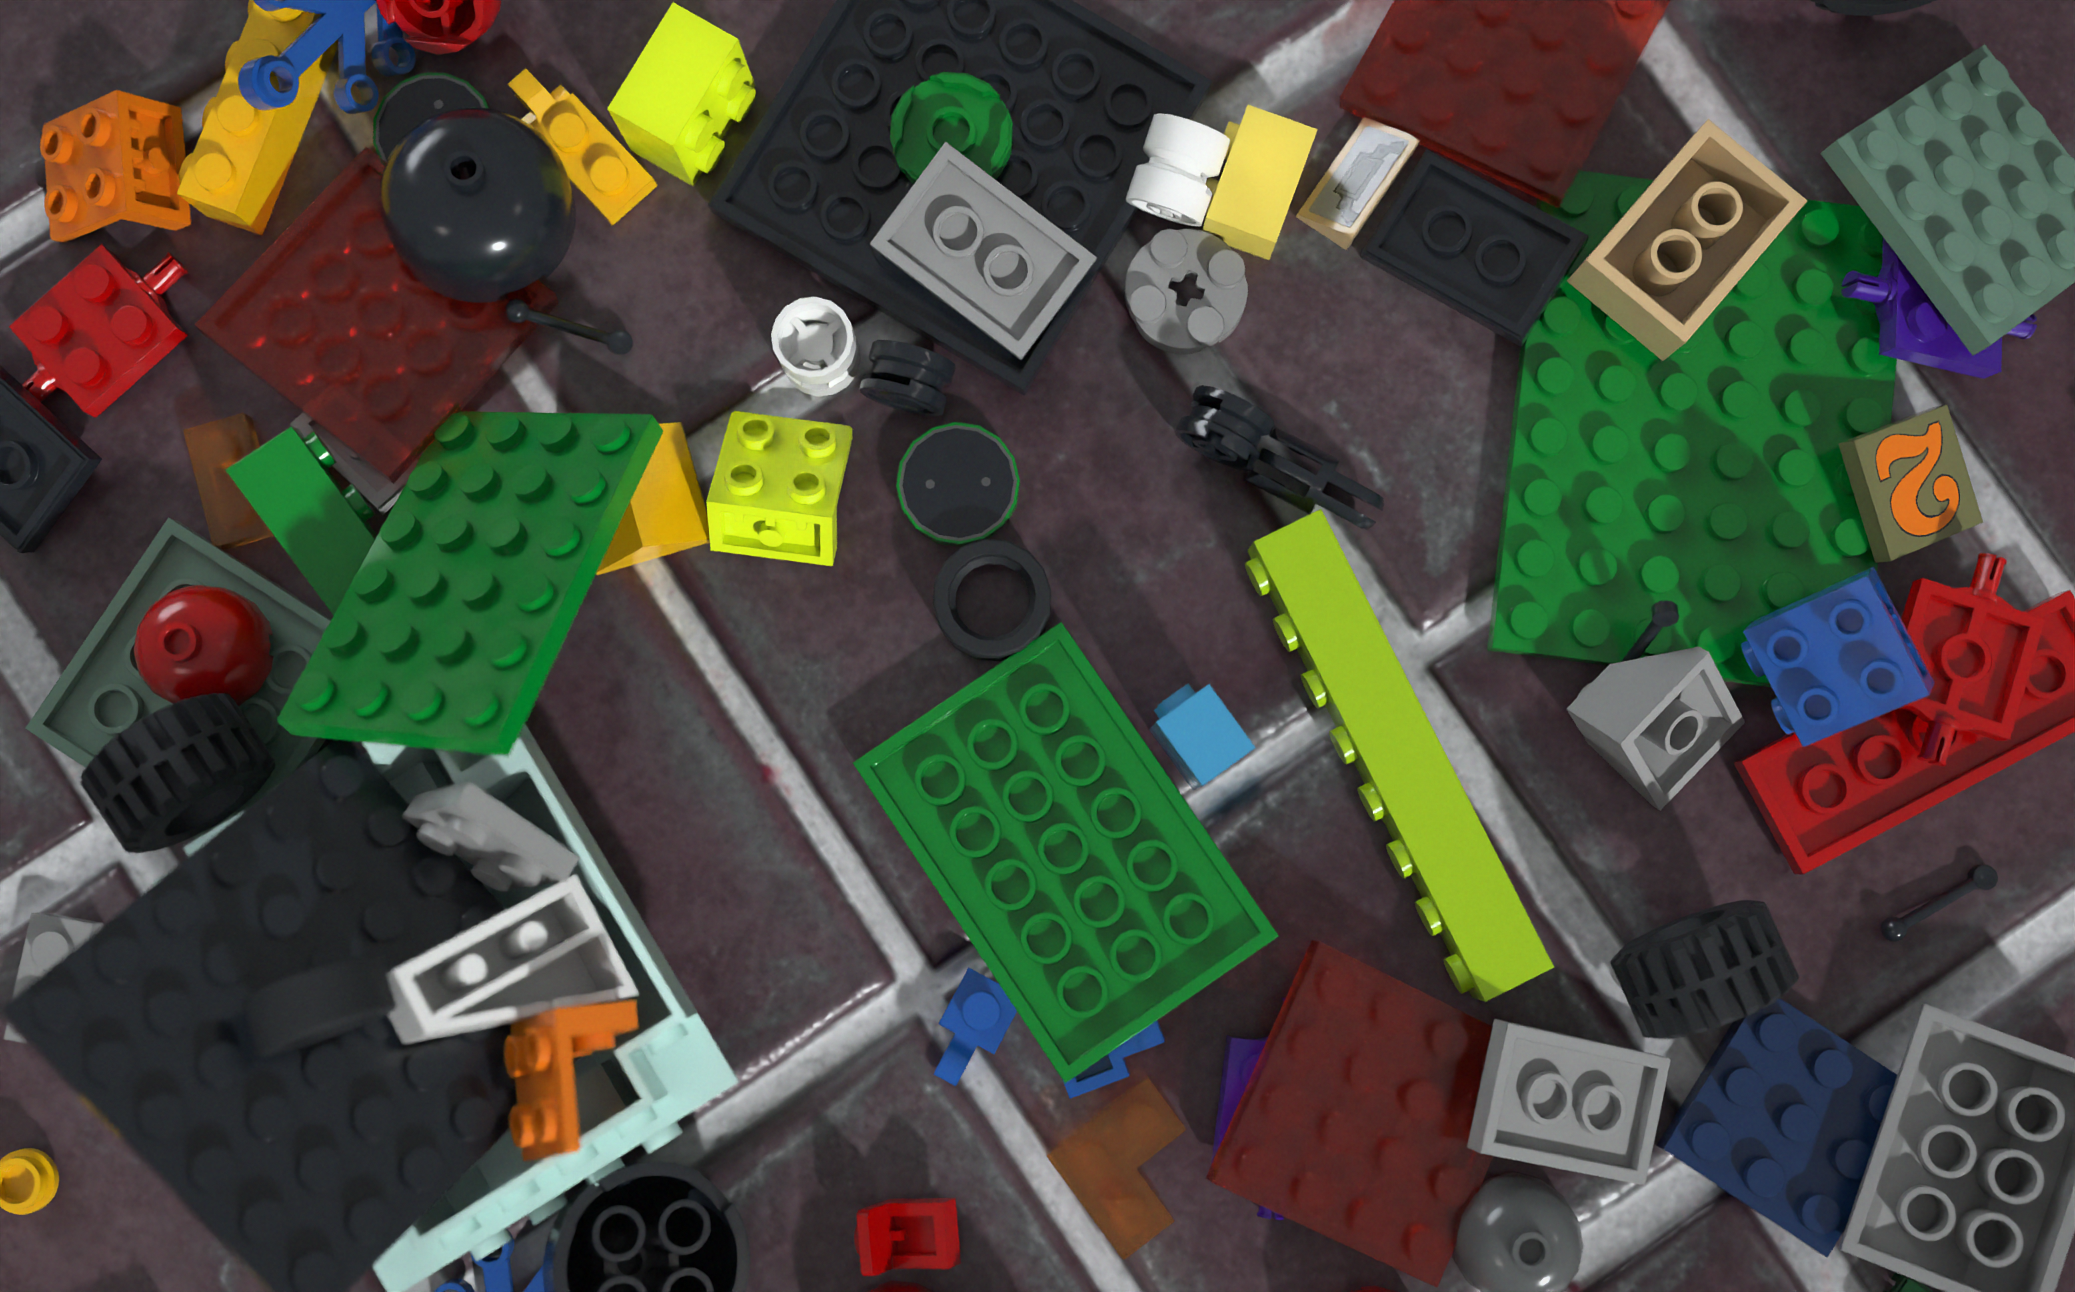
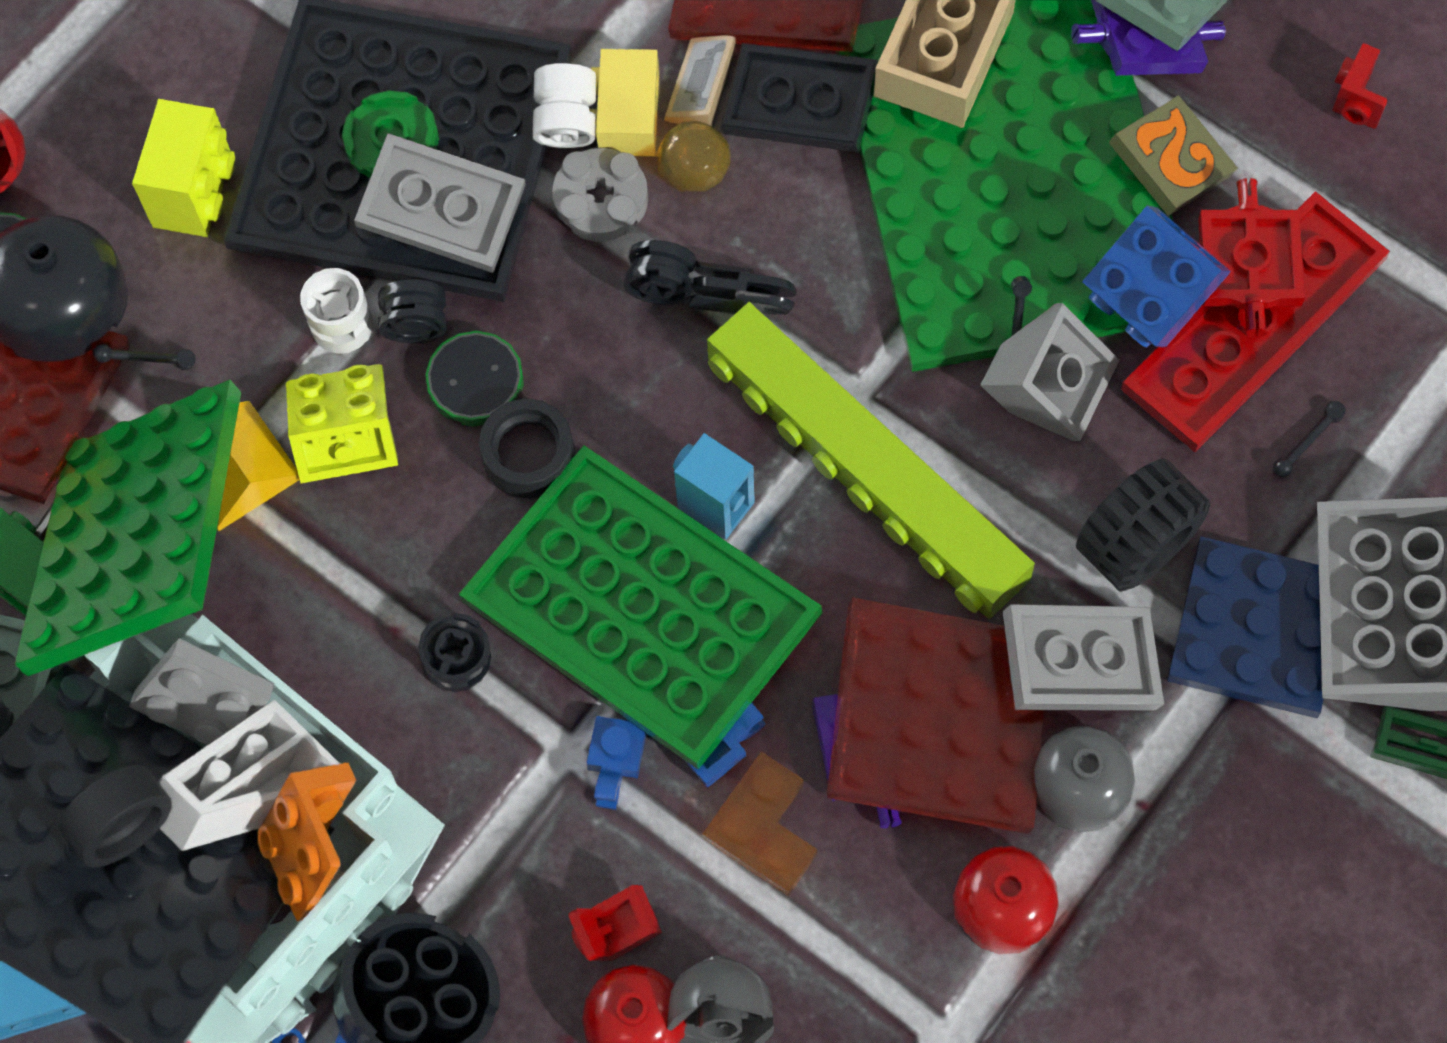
camera: 15 degrees left, 15 degrees down
(588, 151) = (137, 243): yellow hinge -> none
(826, 830) = (454, 652): none -> black wheel
(1315, 281) = (693, 156): none -> clear yellow hair

